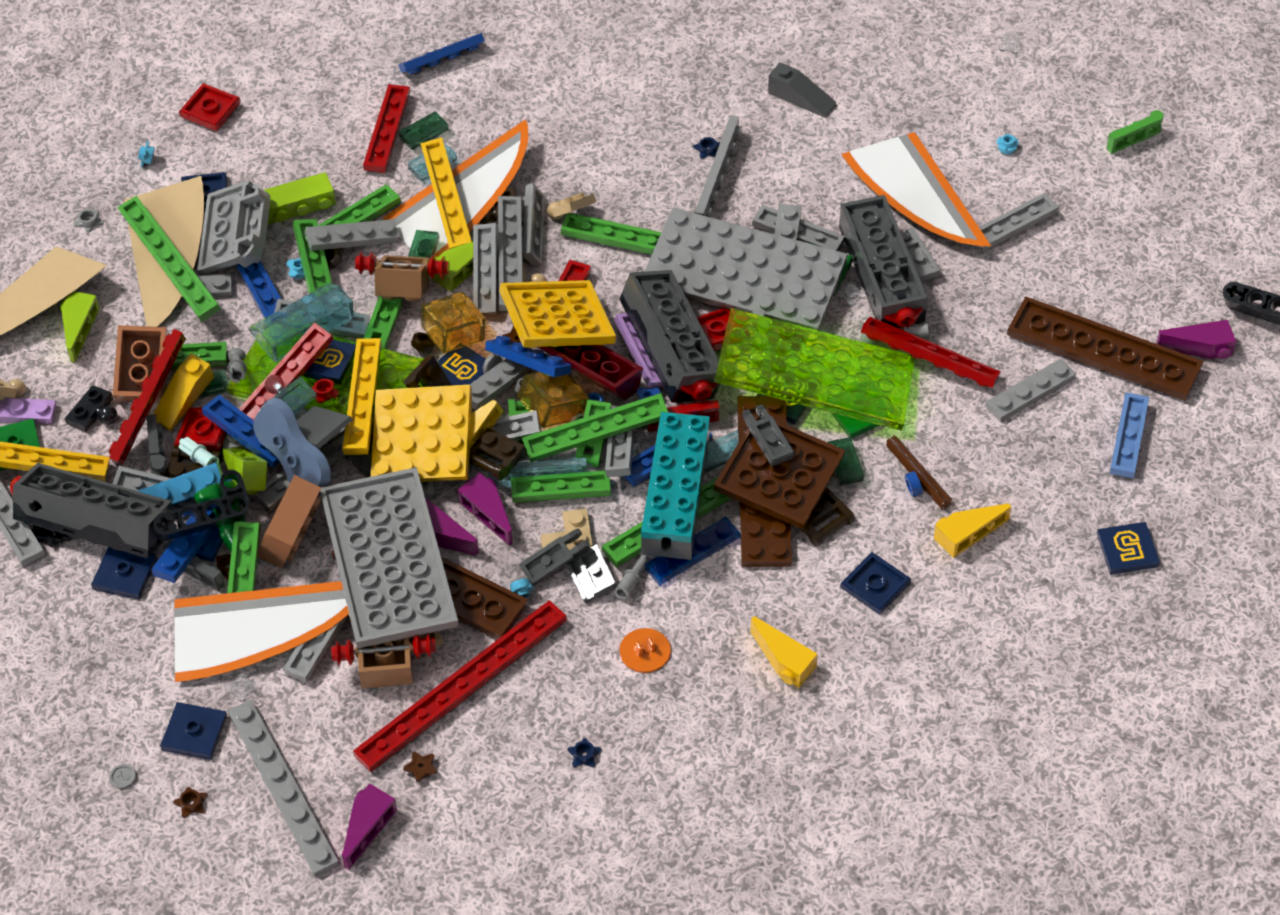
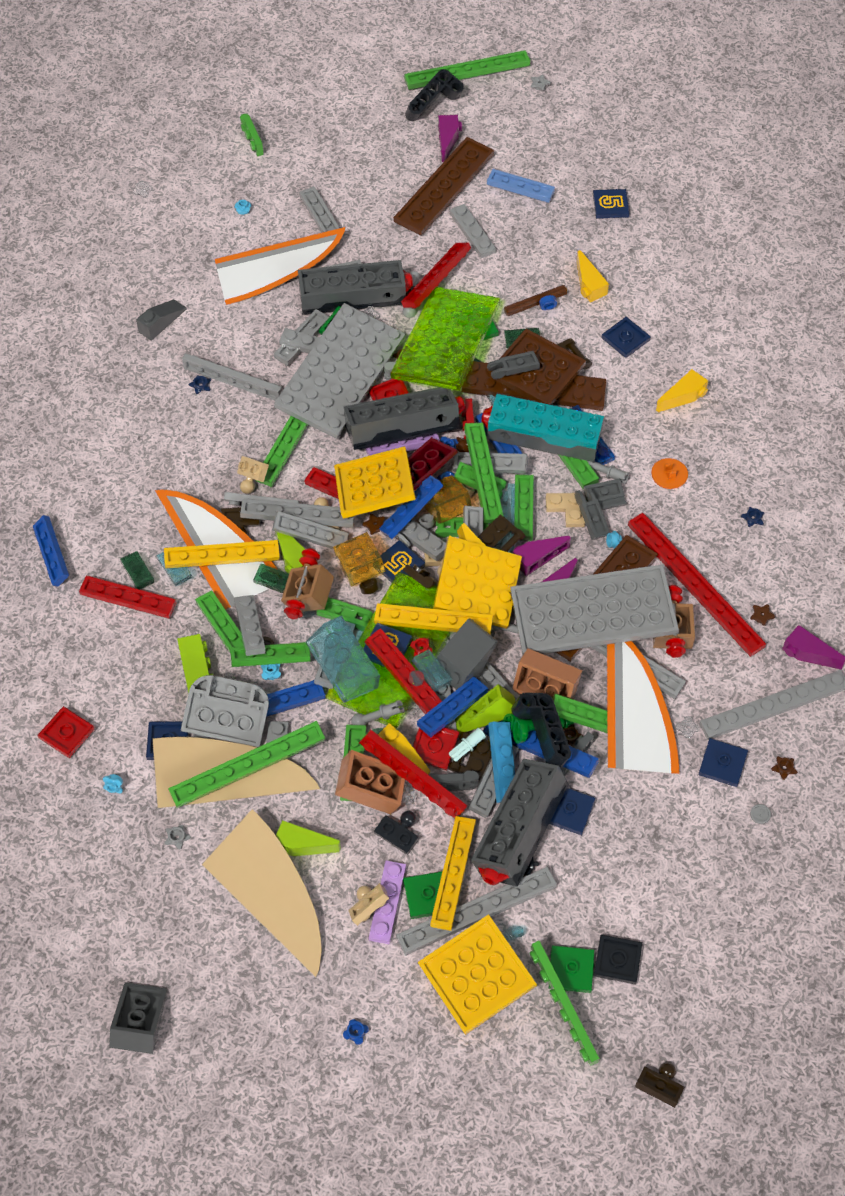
camera: 85 degrees left, 5 degrees up
(280, 433) = (476, 668): sand blue plate -> none

